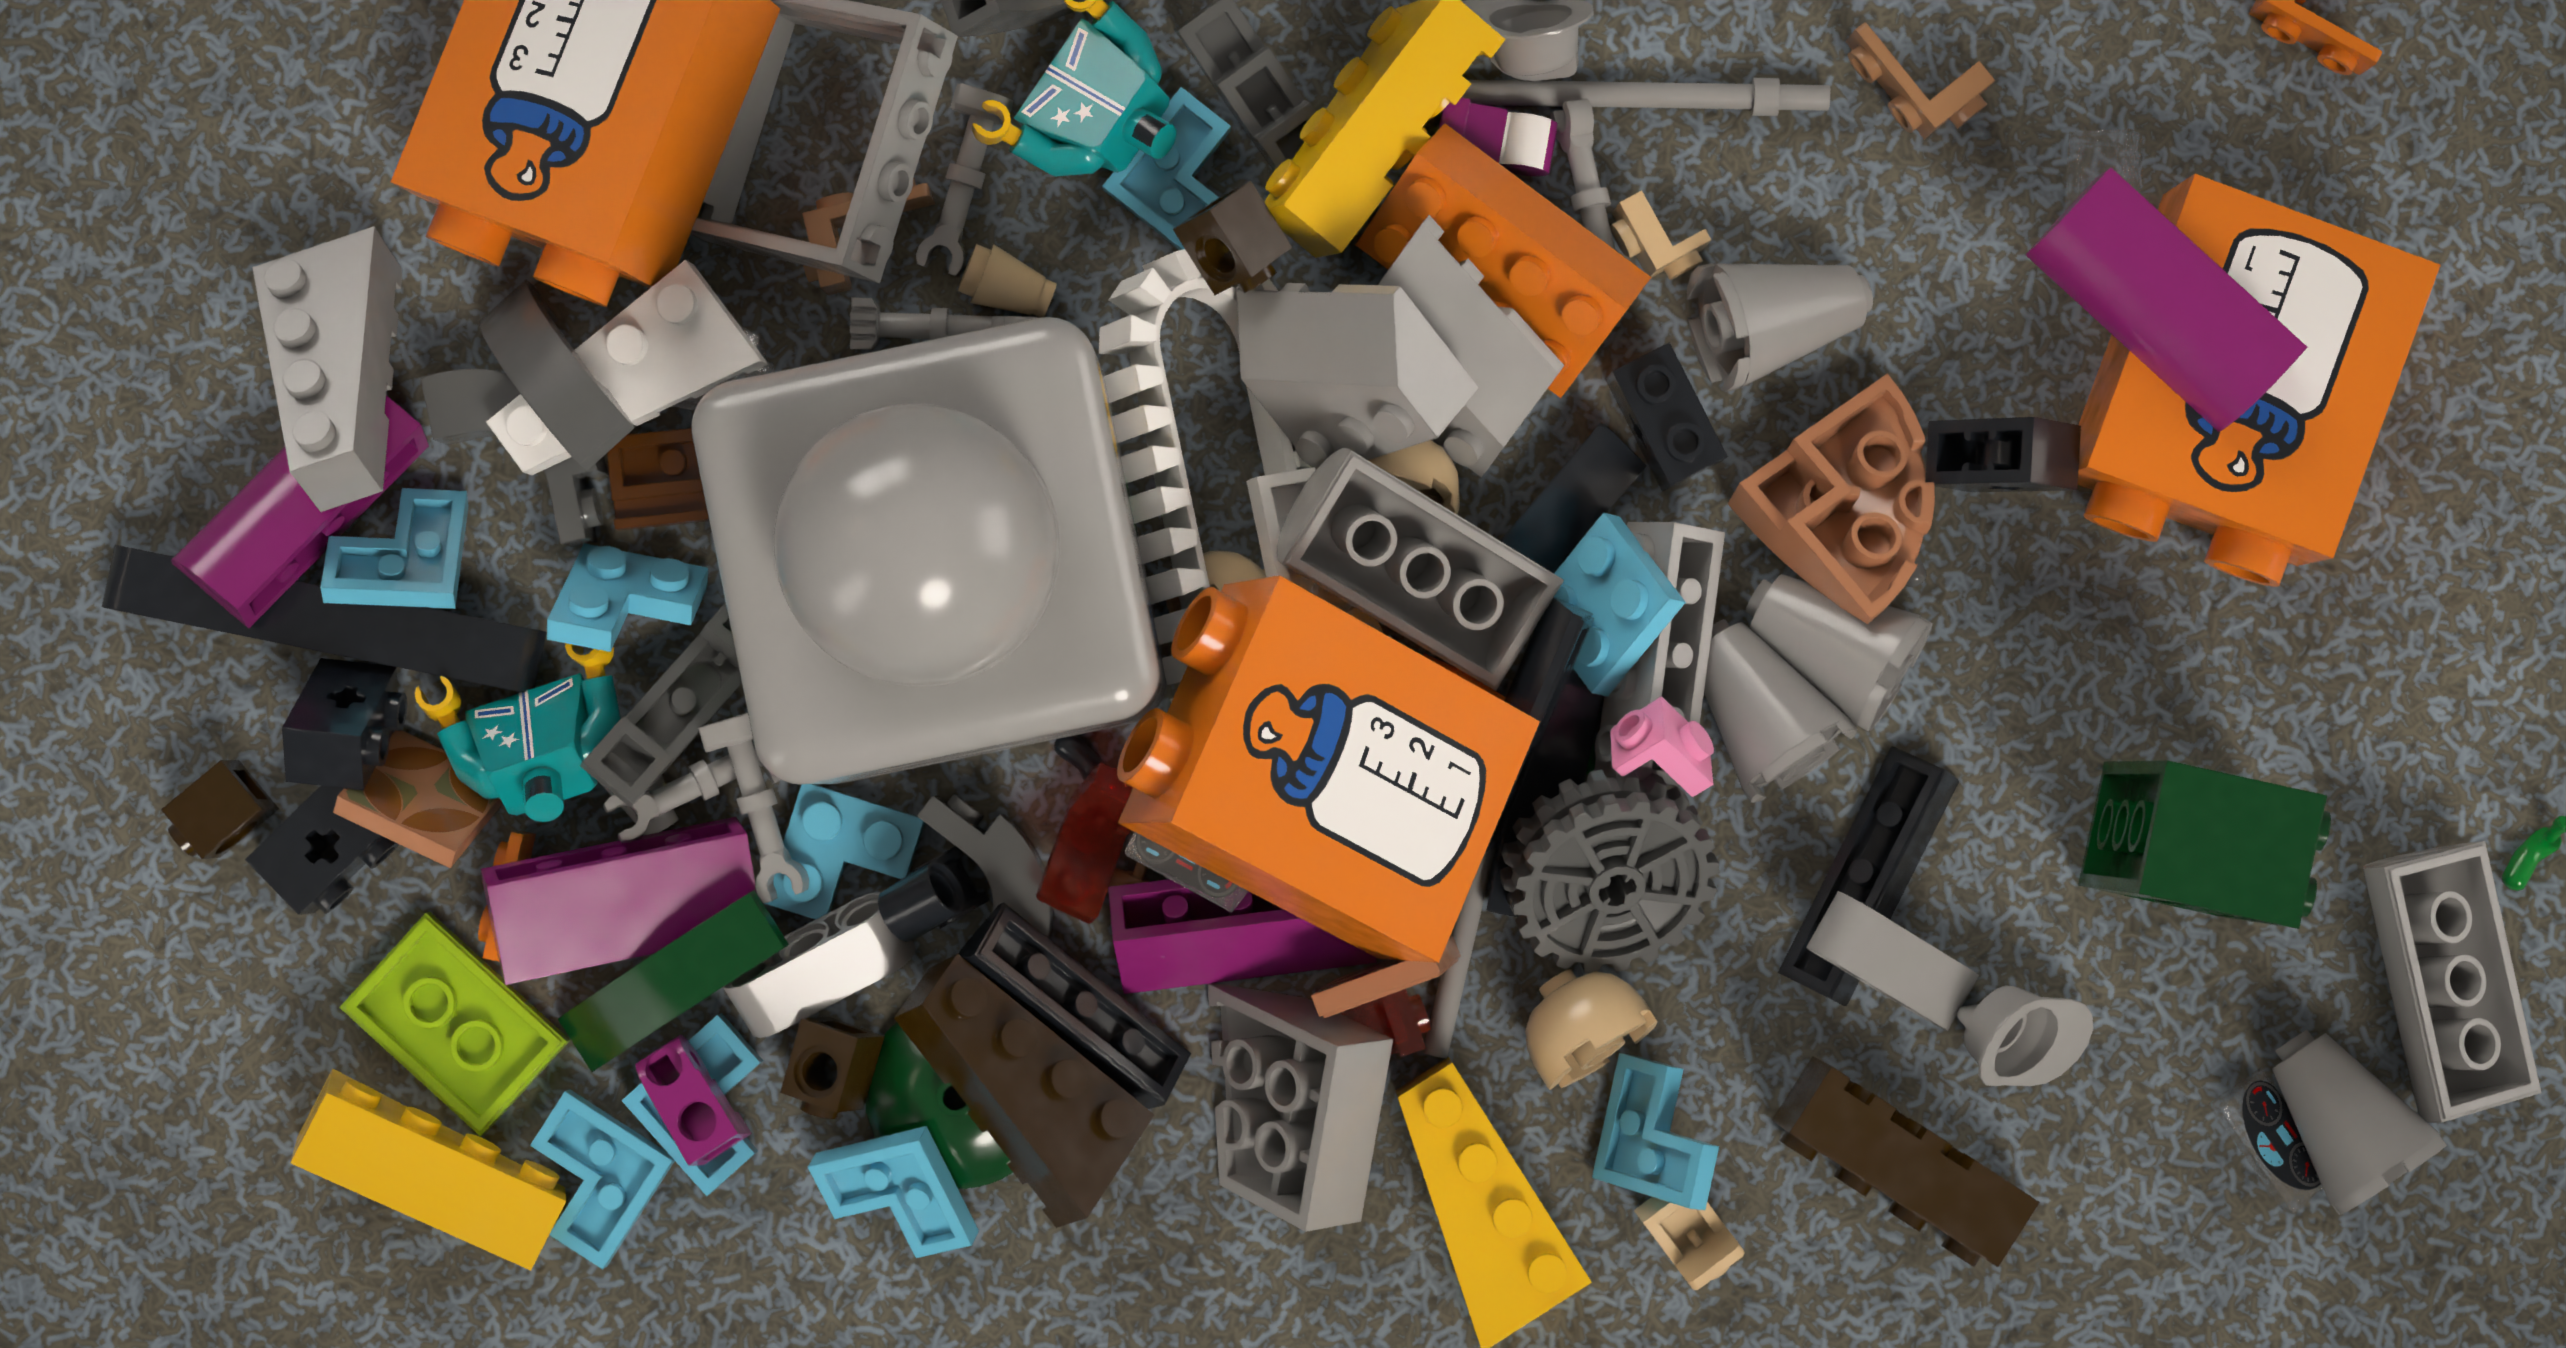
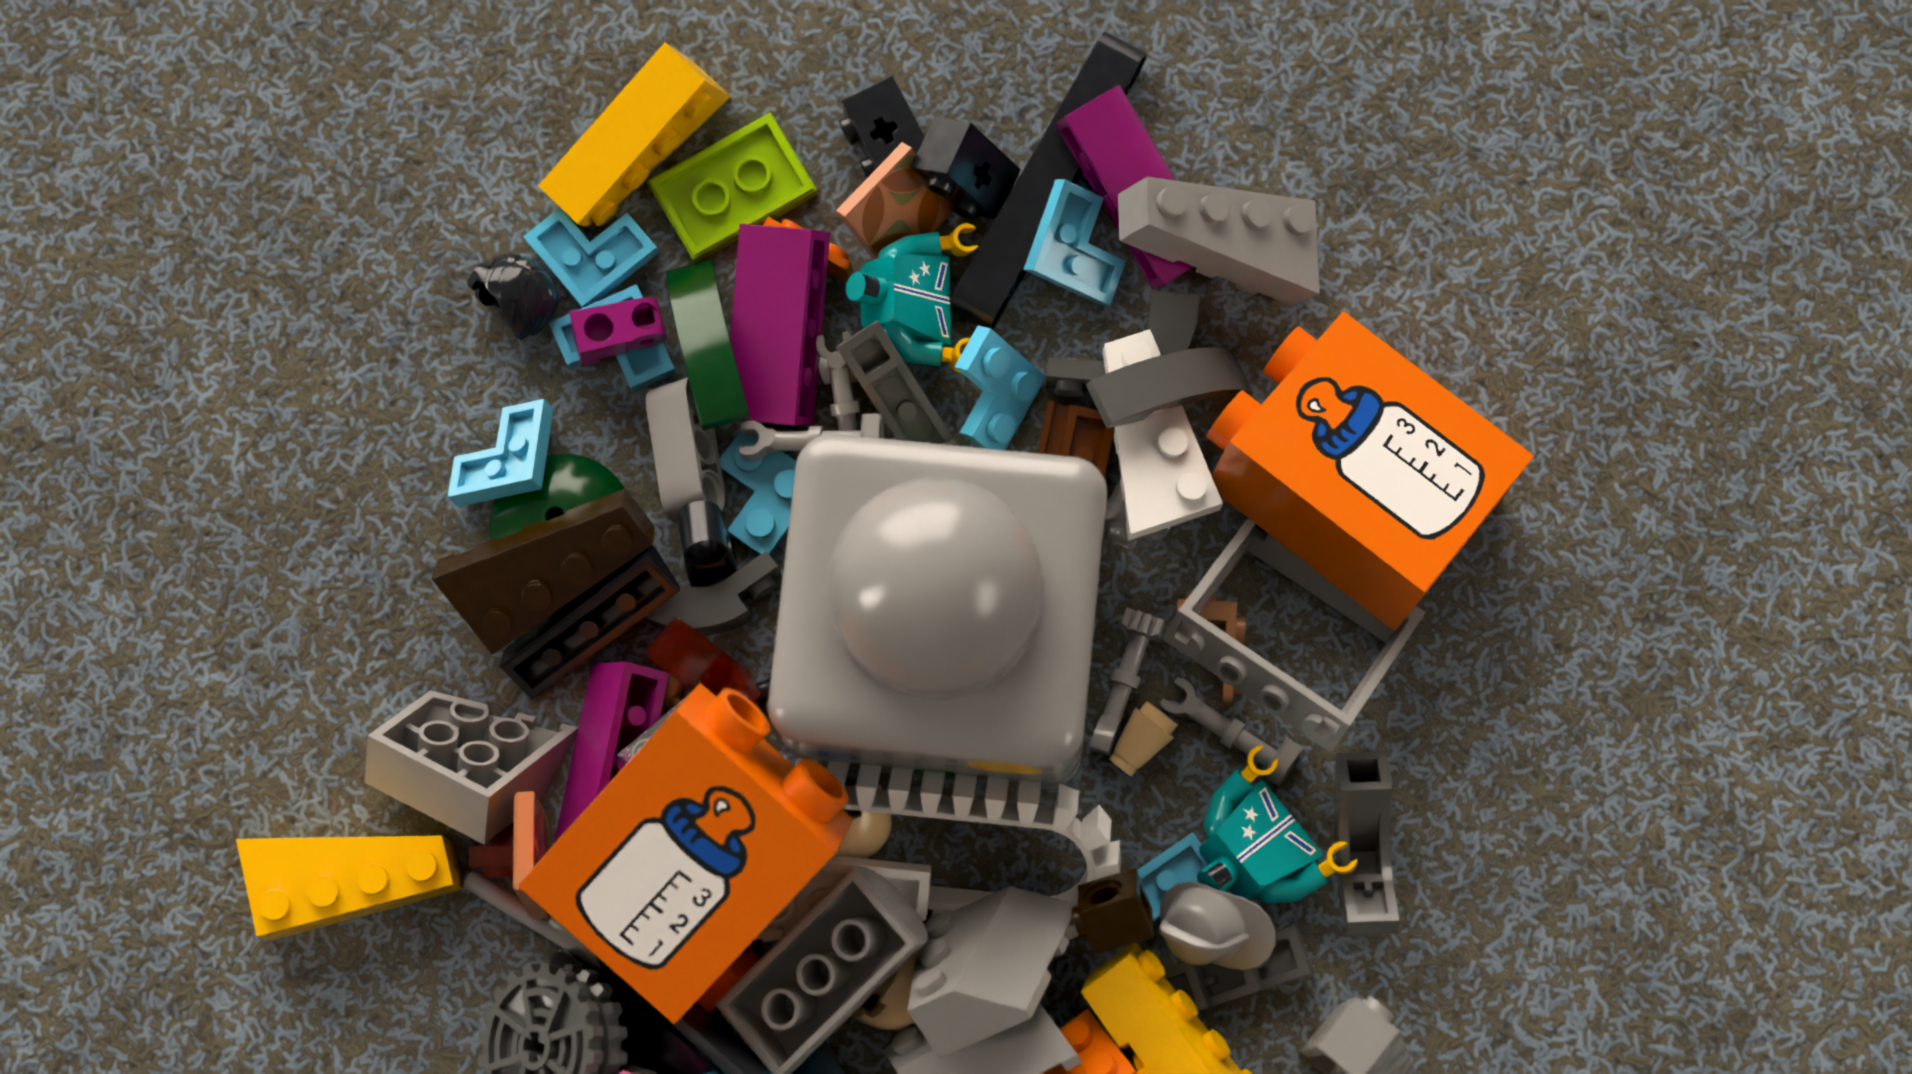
camera: 115 degrees right, 10 degrees down
(218, 810) = (935, 69): dark brown brick -> none
(676, 1247) = (519, 290): none -> black hair
(856, 1058) = (612, 455): dark brown brick -> none
(1211, 120) = (1215, 927): none -> light grey piece
(1583, 1025) = (448, 993): tan cylinder -> none
(1637, 1141) = (348, 1007): medium azure plate -> none
(1691, 1239) = (269, 1026): tan bracket -> none

